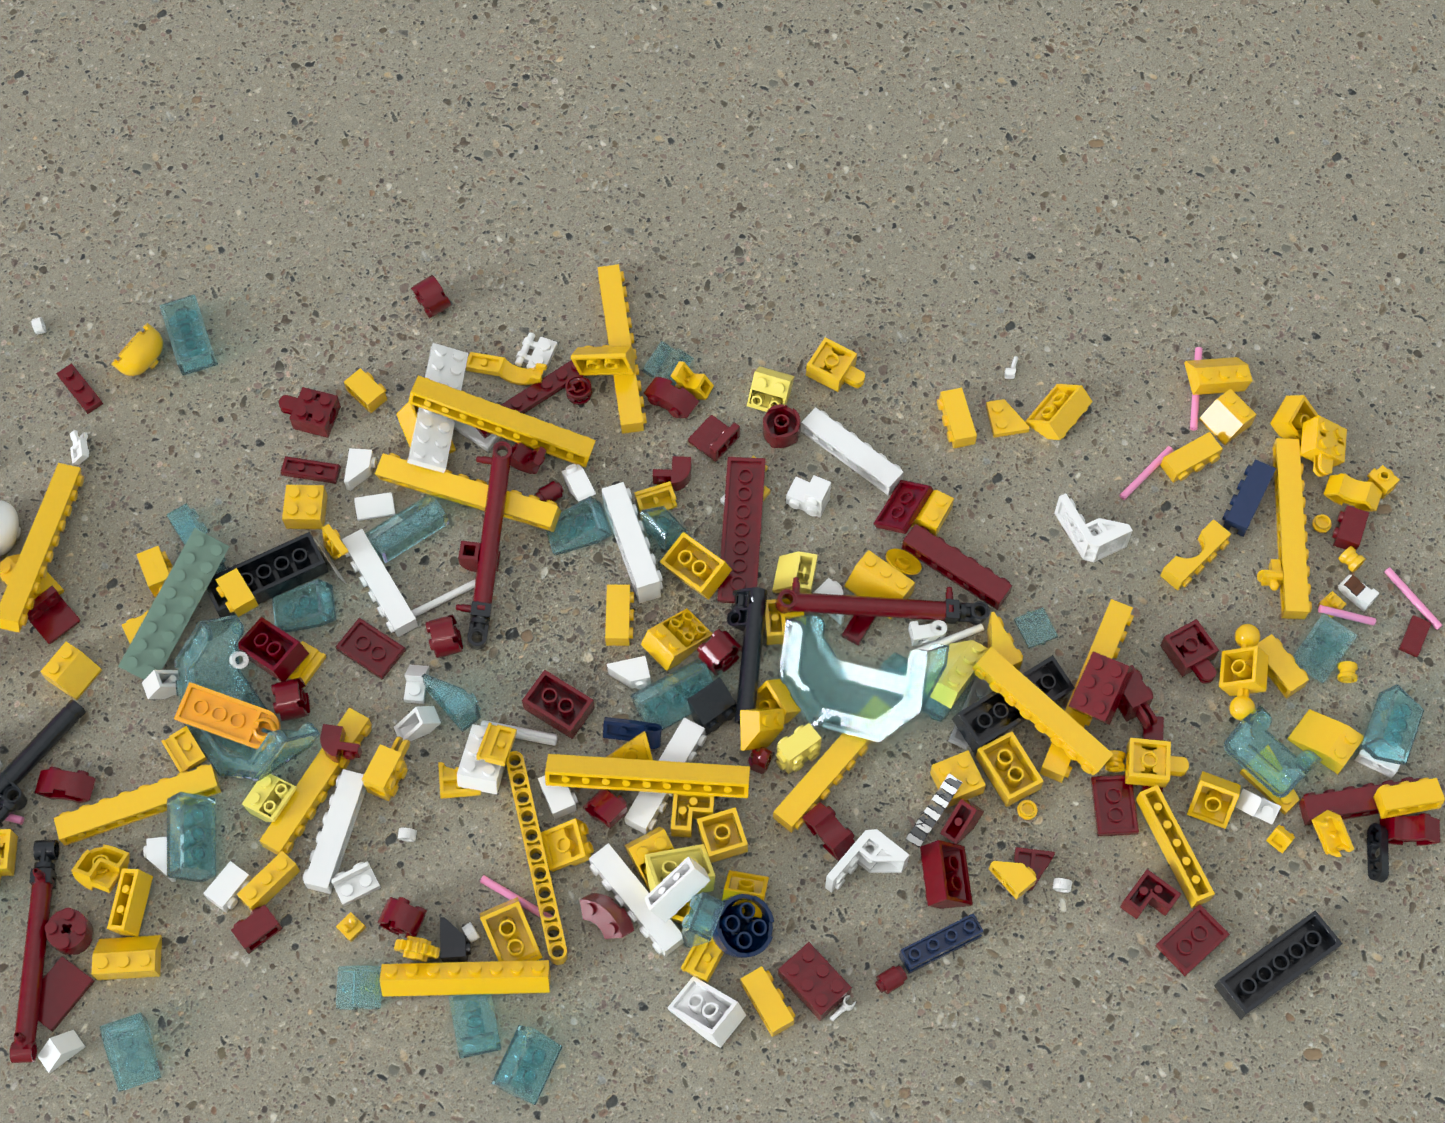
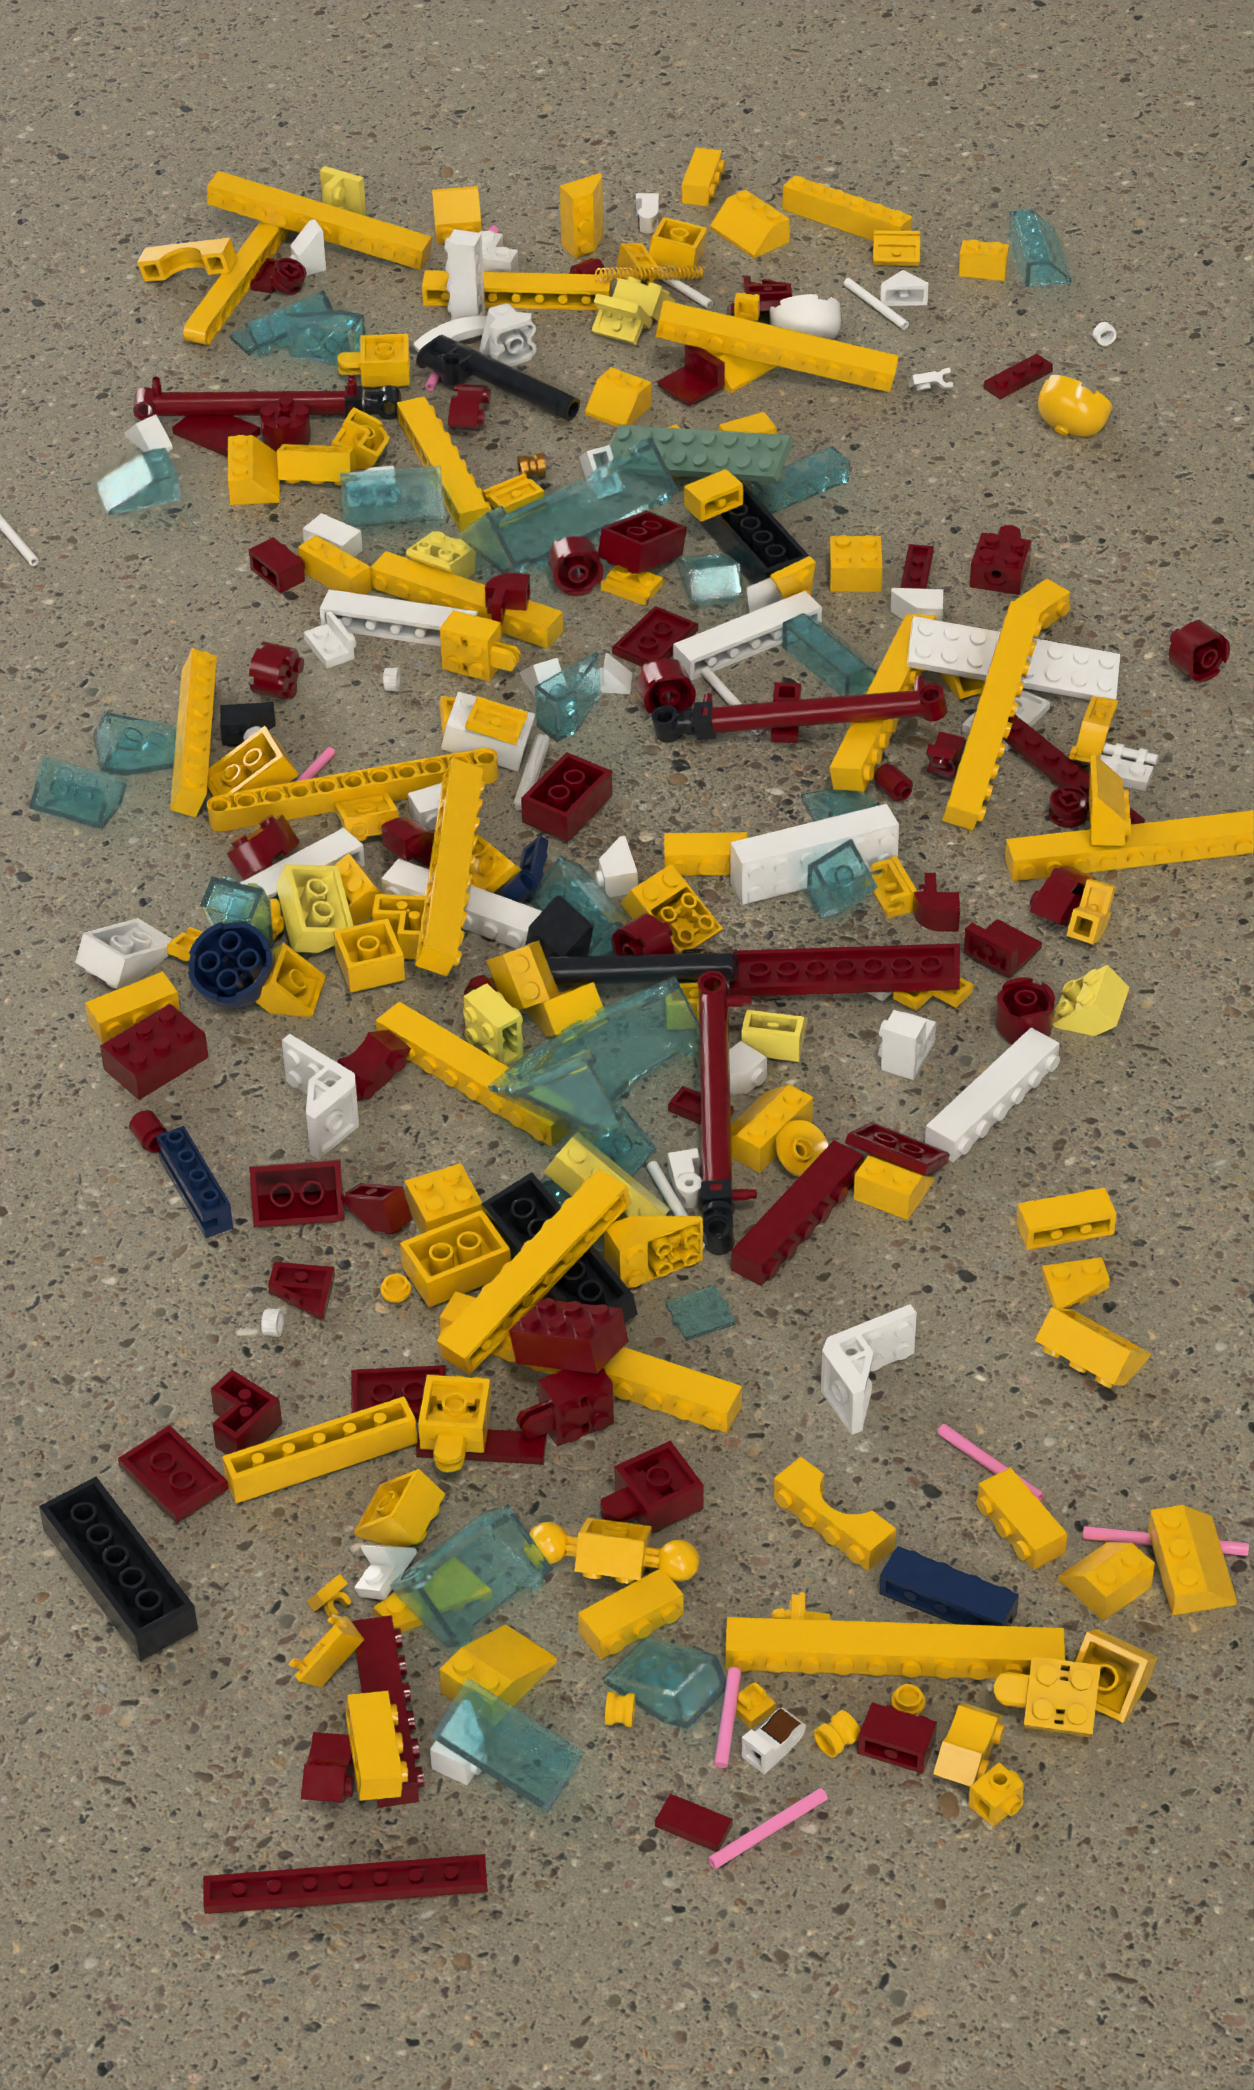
camera: 90 degrees right, 20 degrees down
(150, 736) = (532, 465): none -> pearl gold wheel
(188, 335) = (1104, 446): clear light blue brick -> none
(225, 716) = (546, 509): light orange plate -> none
(244, 663) = (619, 508): white axle -> none
(350, 927) = (275, 636): yellow tile -> none
(358, 987) = (183, 642): clear light blue slope -> none
(374, 506) = (864, 628): white slope -> none
(417, 949) = (232, 680): yellow gear -> none
(577, 482) = (908, 799): white slope -> none
(664, 361) = (1133, 897): clear light blue slope -> none
(677, 889) = (282, 883): white brick -> none
(695, 565) = (778, 916): yellow brick -> none
(834, 366) = (1139, 1068): yellow brick -> none
(845, 1007) = (118, 1088): white hand -> none
(934, 810) = (393, 1171): sticker -> none
(1010, 372) = (1163, 1293): white hand -> none
(1014, 877) = (280, 1251): yellow slope -> none
(1377, 838) = (294, 1722): black beam -> none

